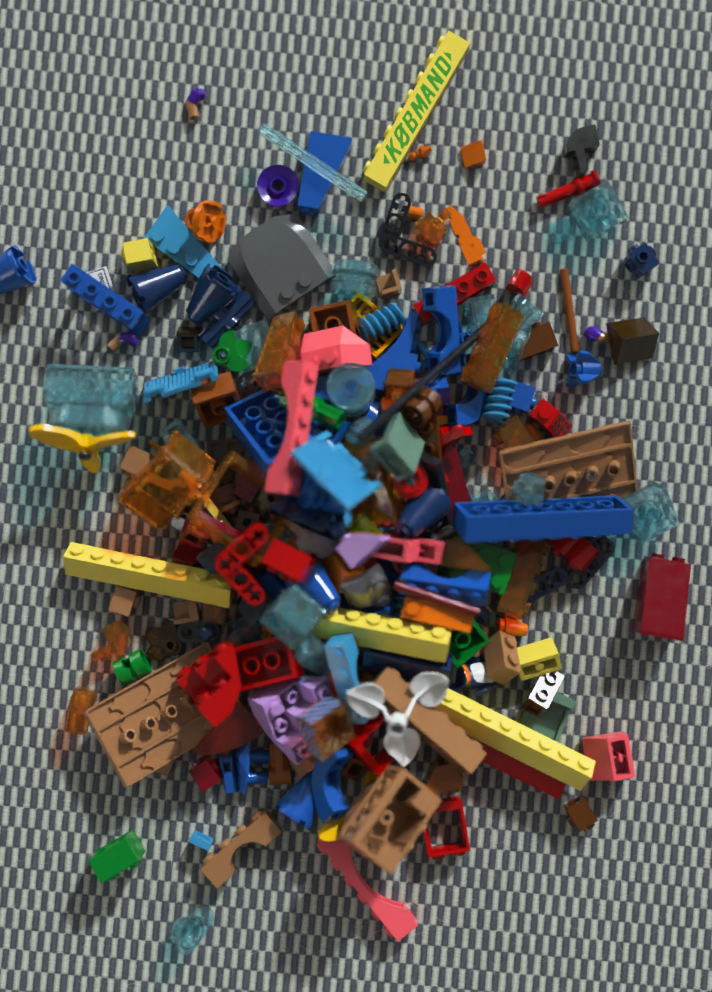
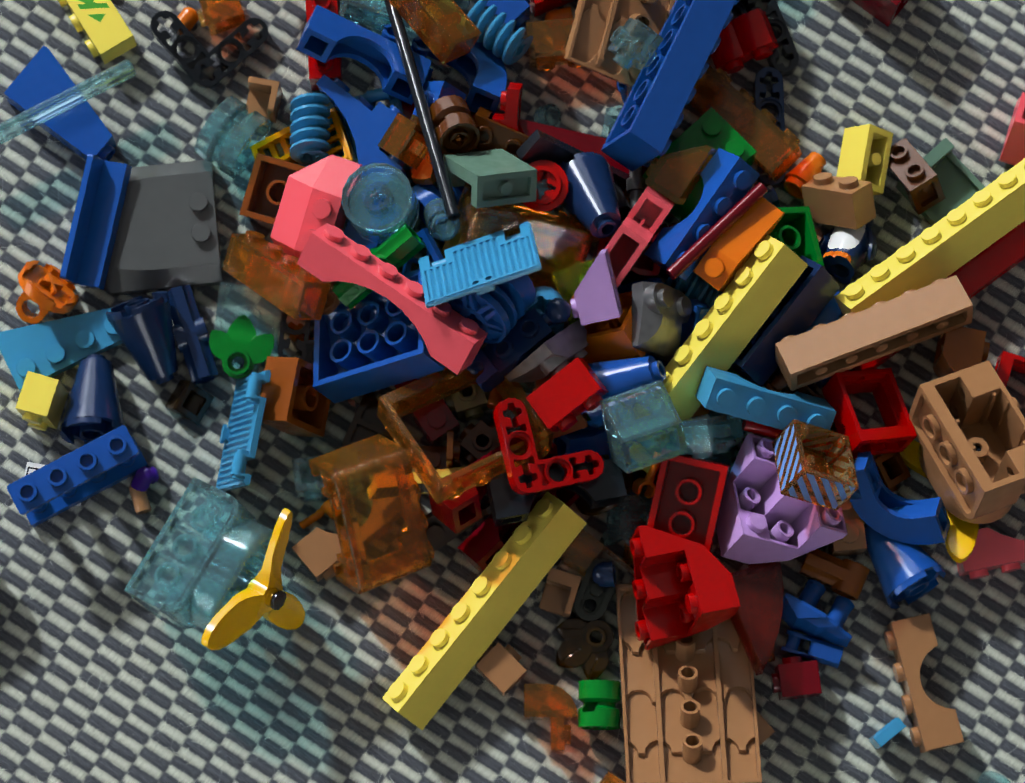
camera: 60 degrees left, 10 degrees down
(261, 227) = (95, 222): none -> blue panel
(277, 175) = (39, 165): dark purple dish -> none
(399, 741) = (805, 387): white plant -> none

